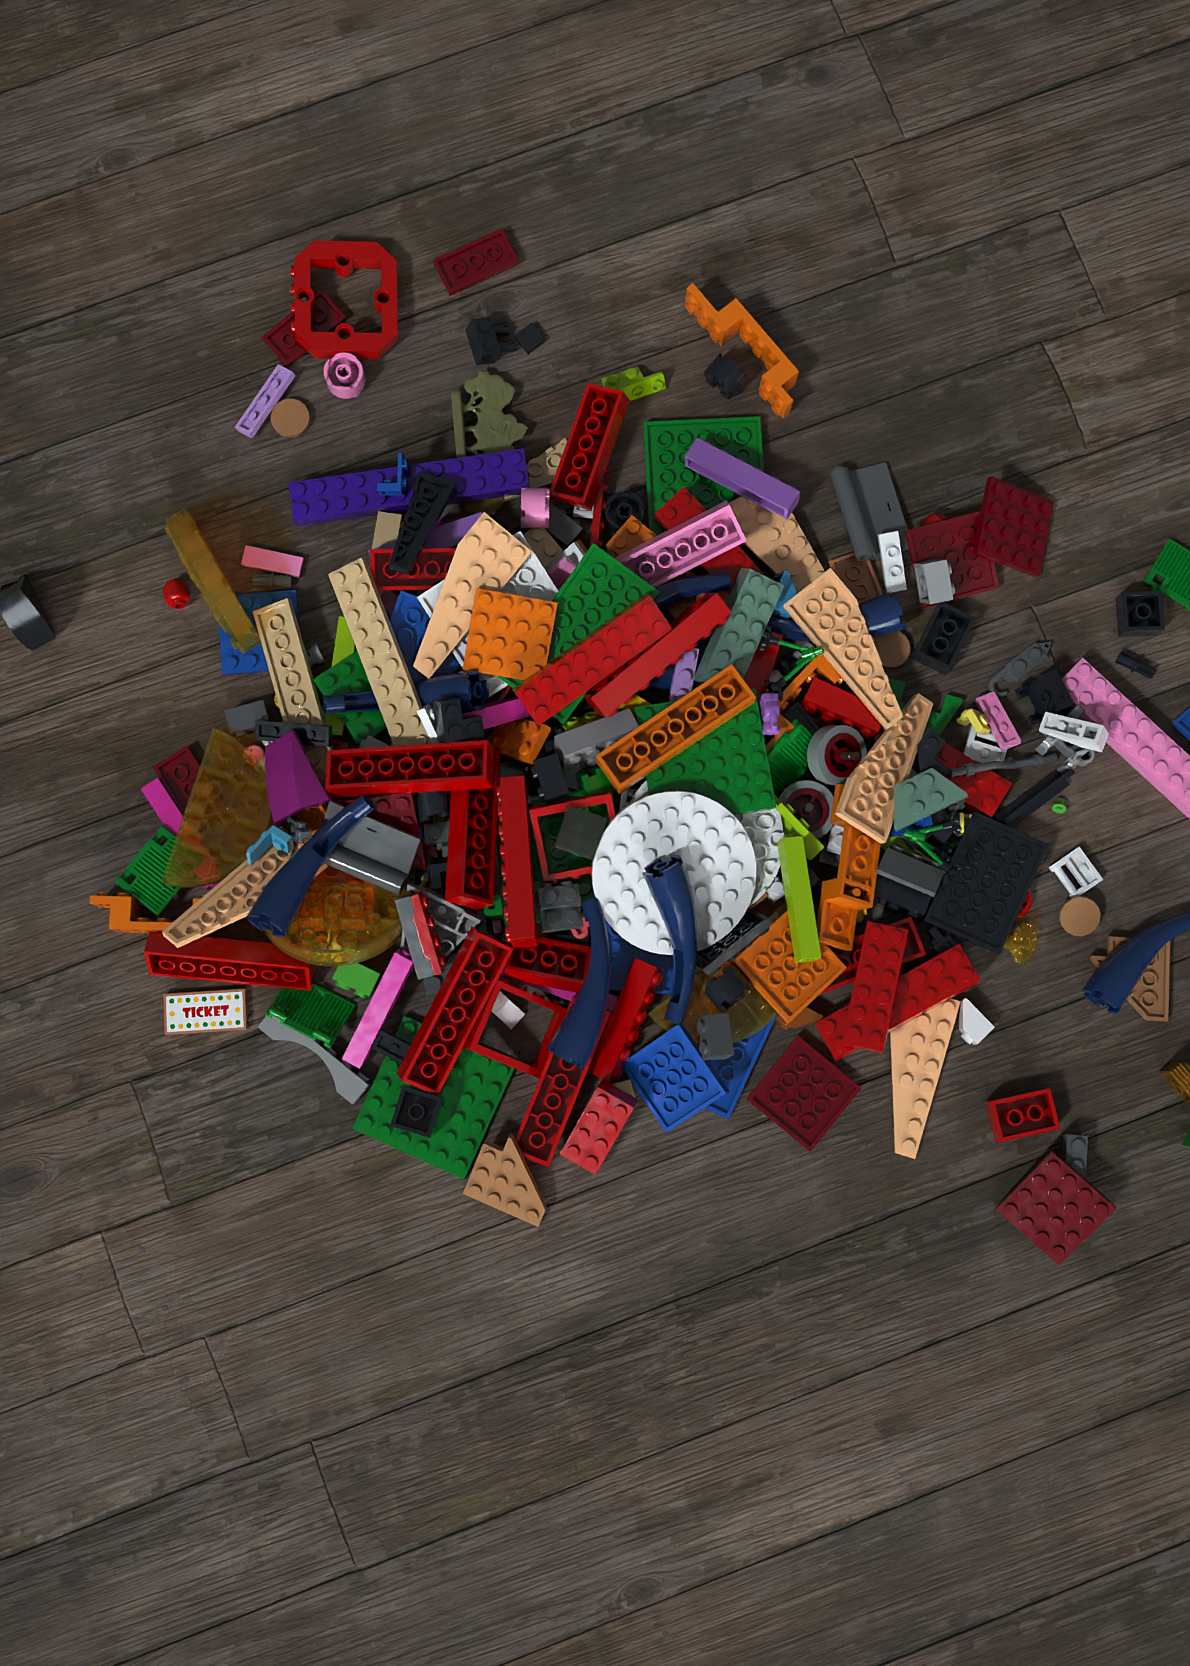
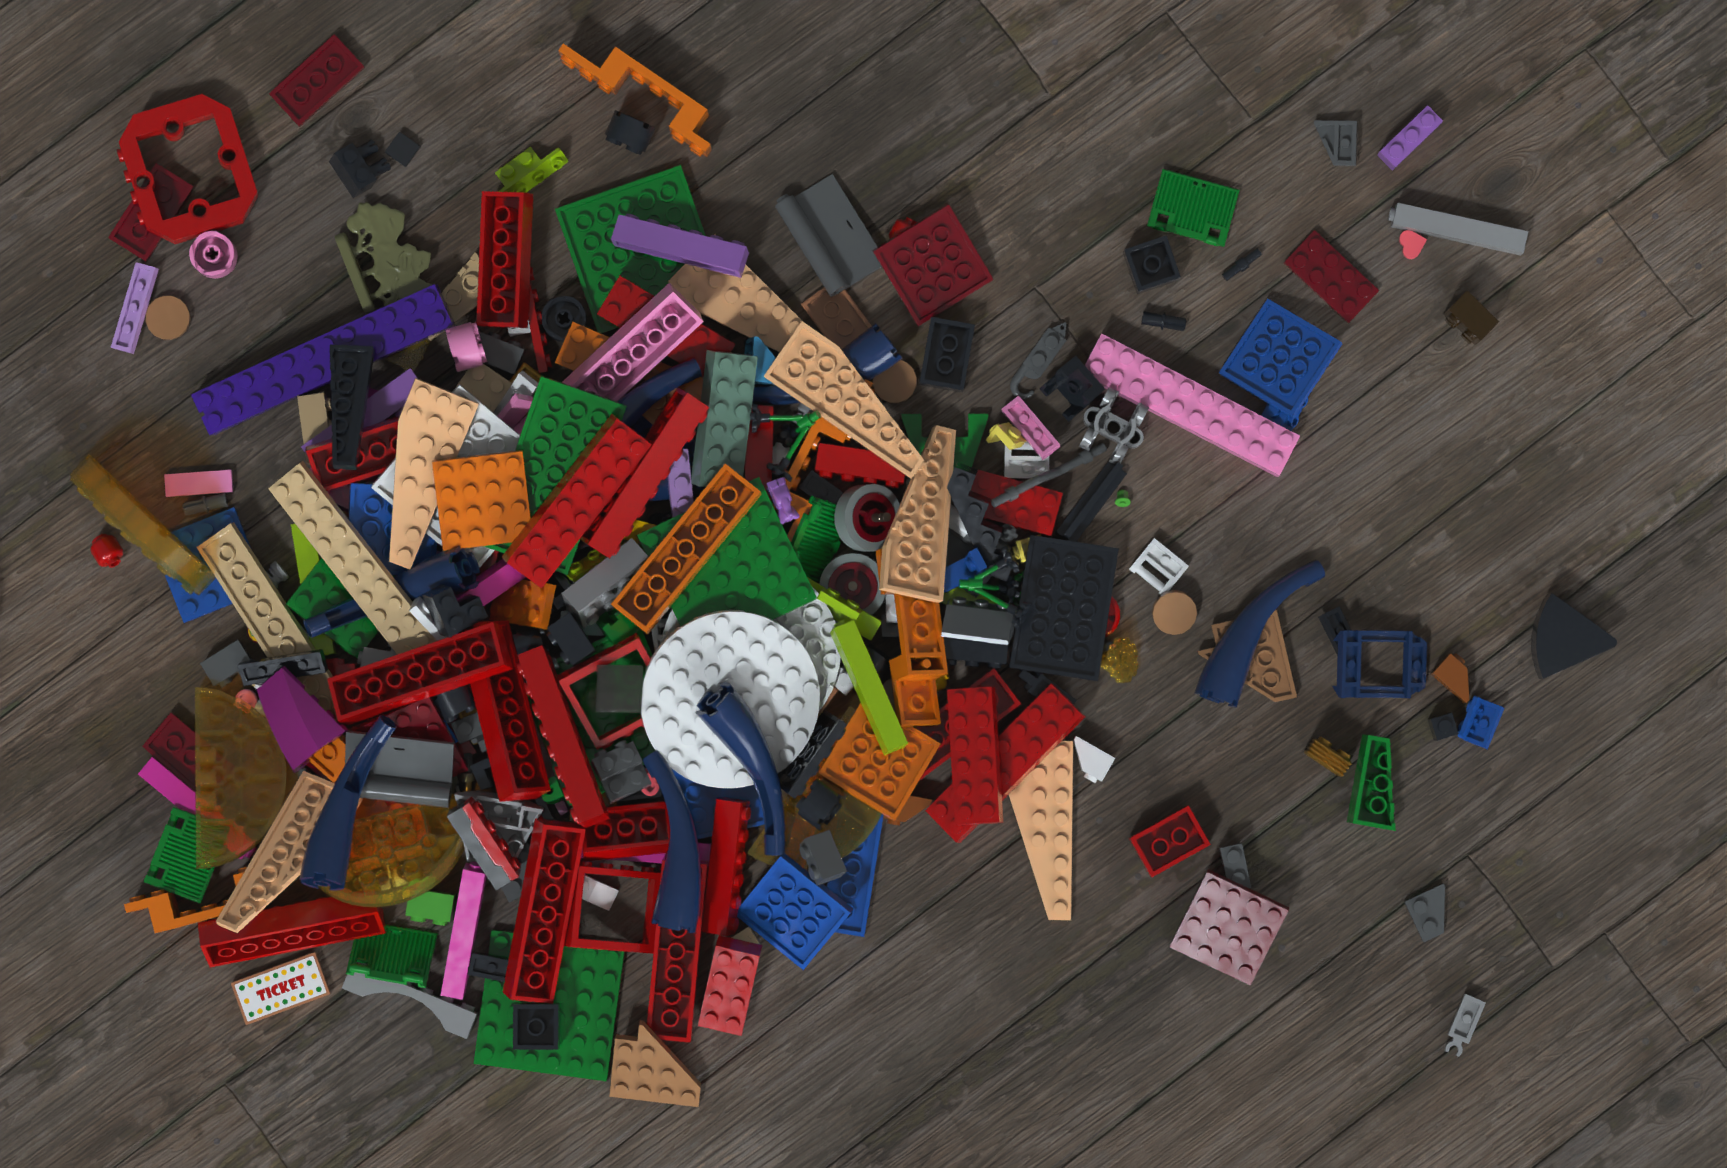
camera: 15 degrees left, 5 degrees up
(273, 836) = (297, 784): medium azure bracket -> none
(298, 829) = (321, 770): dark grey hinge -> none
(389, 487) = (303, 371): blue bracket -> none
(803, 1093) = (935, 886): dark red plate -> none
(892, 561) = (869, 286): white plate -> none
(923, 797) = (968, 541): sand green wing -> none
(934, 581) = (917, 299): light grey brick -> none
(1013, 527) = (989, 209): dark red plate -> none
(1075, 731) = (1110, 421): white slope -> none

